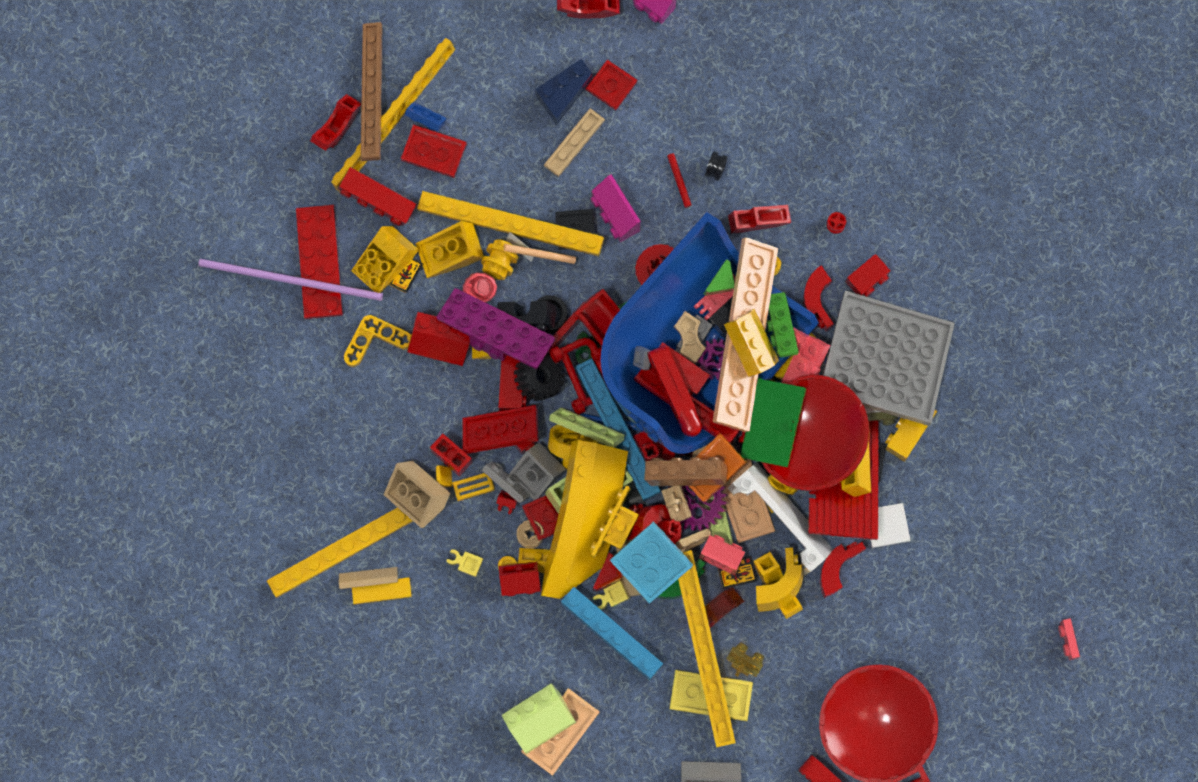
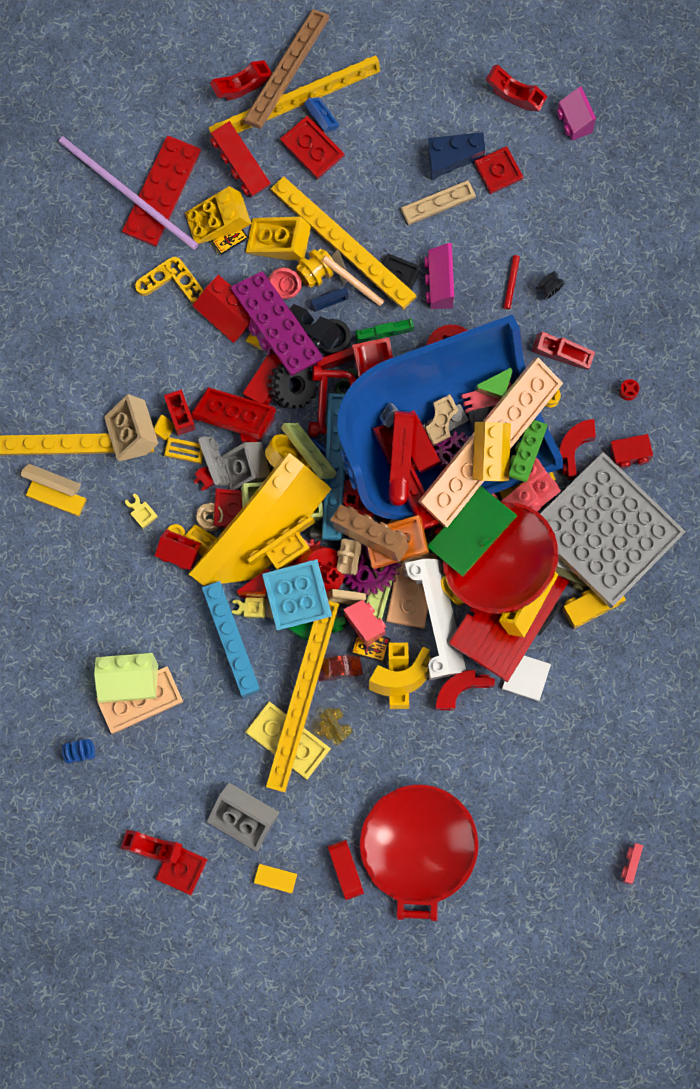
camera: 30 degrees right, 0 degrees up
(527, 281) = (329, 299): none -> dark blue tile
(594, 281) = (388, 330): none -> green piece

